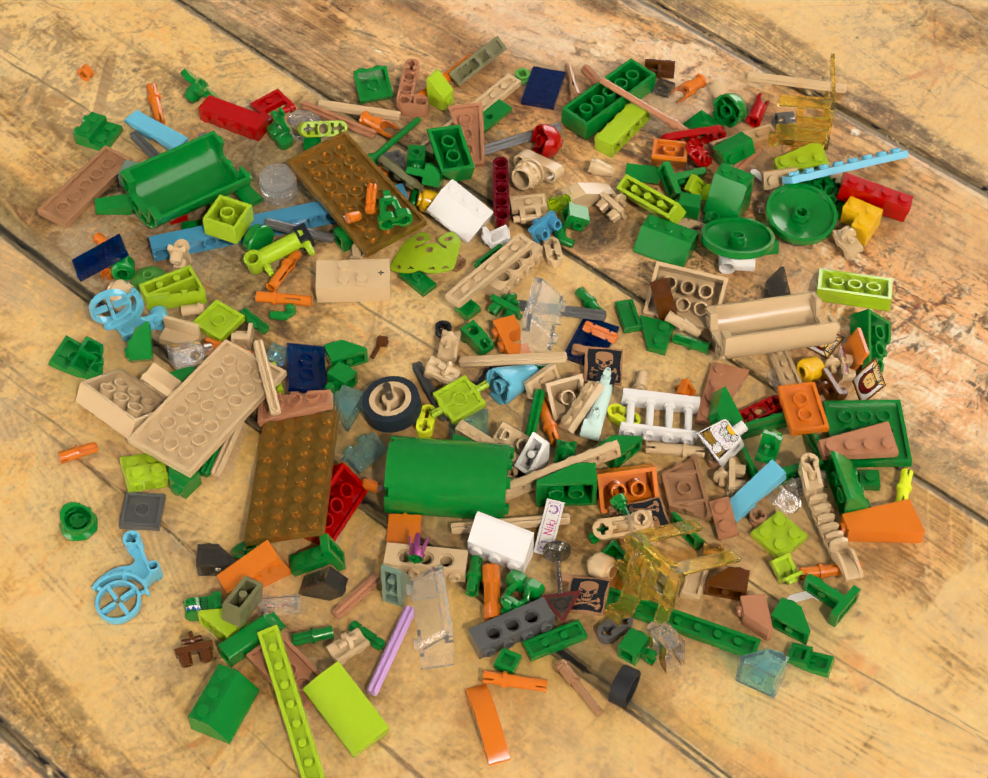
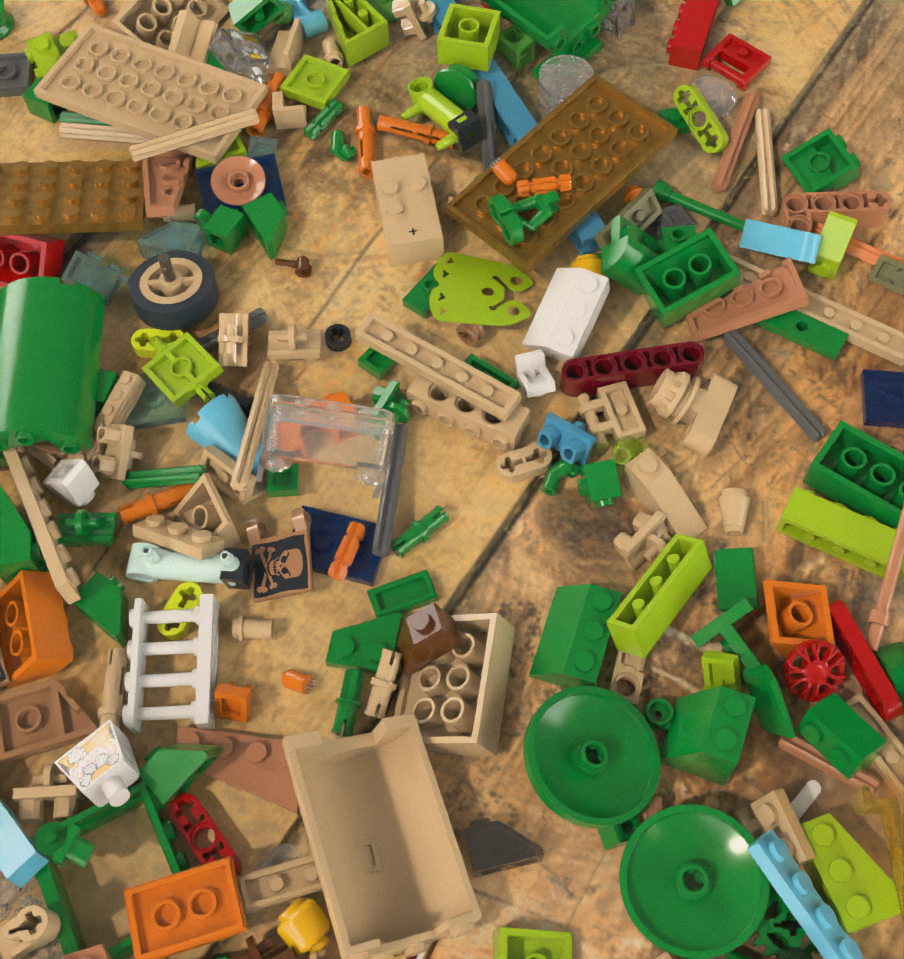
camera: 85 degrees right, 10 degrees up
(280, 130) = (686, 70): green piece -> none
(311, 359) = (238, 171): none -> nougat dish
(376, 123) = (740, 184): orange piece -> none
(431, 110) = (780, 241): none -> medium azure beam
(476, 338) = (317, 377): green leg -> none
(546, 140) = (766, 416): red cylinder -> none
(674, 366) = (298, 681): none -> orange piece
(691, 204) = (679, 667): green brick -> none
(709, 167) = (769, 701): none -> green slope

